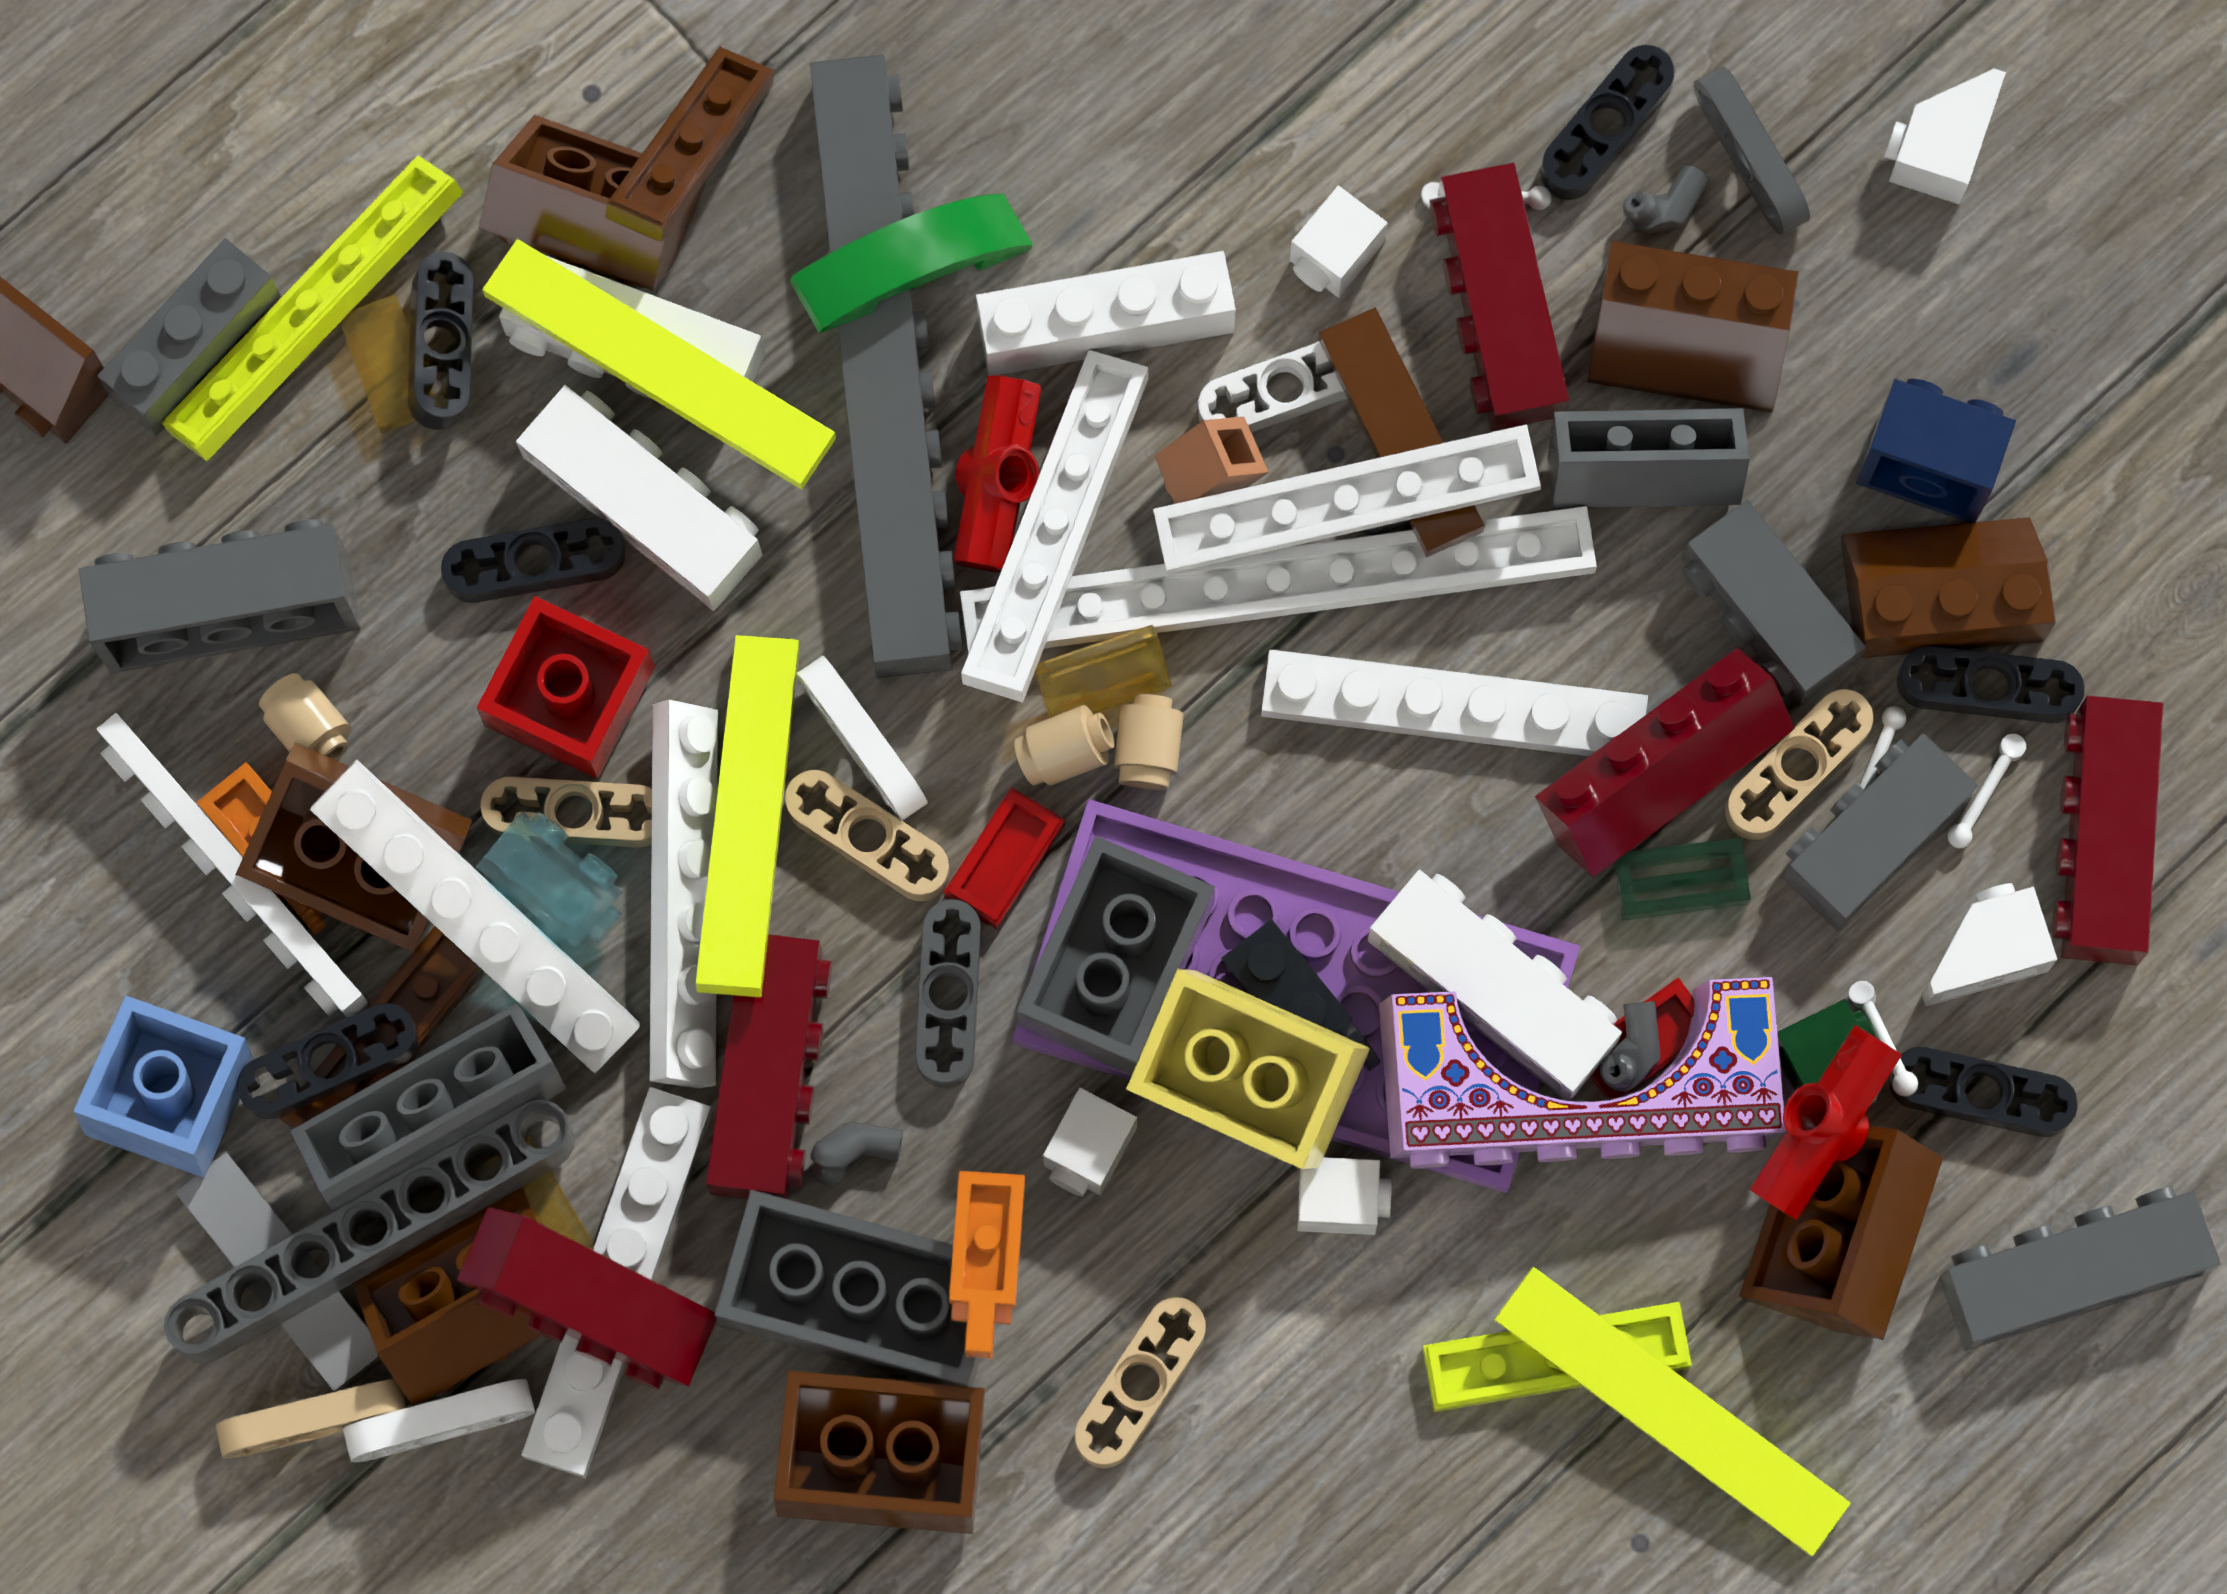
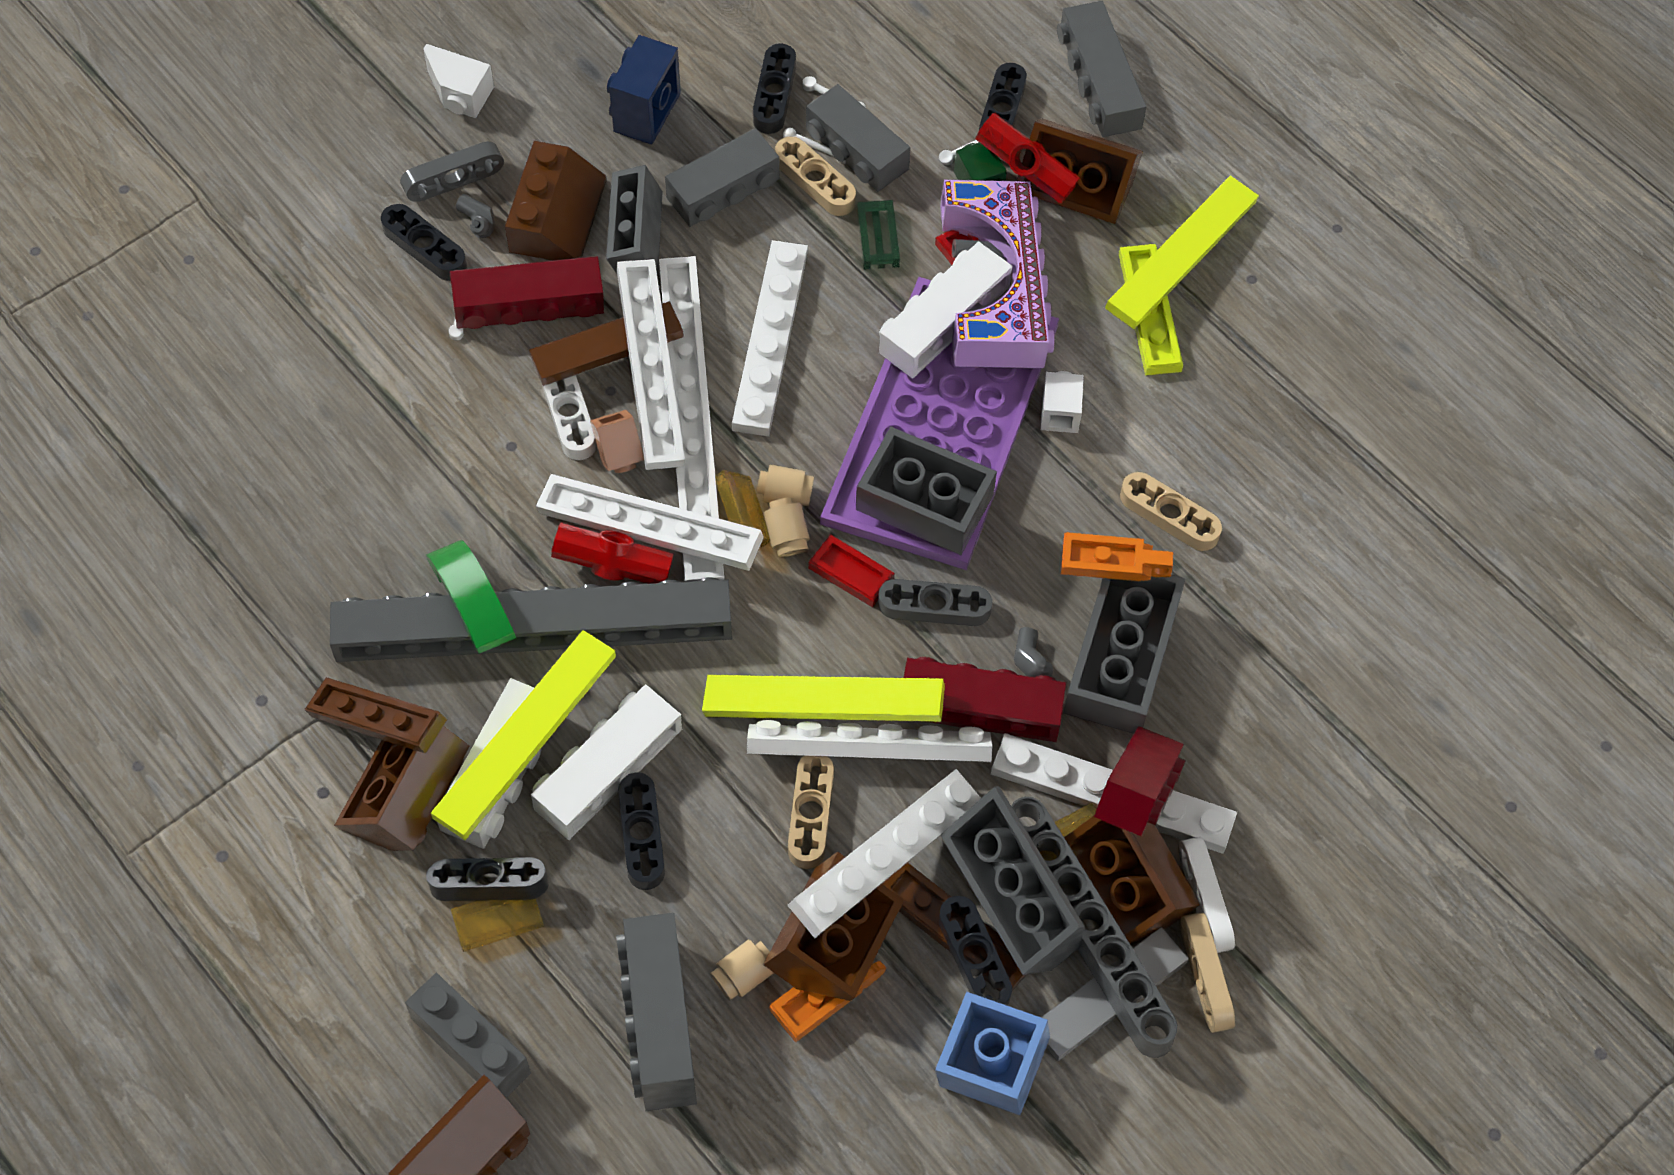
camera: 90 degrees left, 15 degrees down
(212, 850) = (829, 1027): white plate -> none
(312, 308) = (454, 960): neon yellow tile -> none
(559, 887) = (869, 805): clear light blue brick -> none
(566, 687) = (733, 802): red brick -> none
(819, 823) = (837, 625): tan beam -> none
(861, 738) = (774, 640): white beam -> none
(879, 1452) = (1223, 637): reddish brown slope -> none
(1088, 1144) = (1030, 526): white brick -> none
(1106, 313) = (514, 495): white brick -> none
(1248, 1069) = (1001, 415): light yellow brick -> none
(1278, 974) = (953, 409): black hinge -> none
(1337, 243) = (482, 374): white brick -> none
(1665, 762) = (815, 228): dark red brick -> none
(1948, 586) = (716, 96): reddish brown slope -> none
(1994, 945) = (923, 93): white slope -> none
(2110, 830) = (861, 37): dark red brick -> none

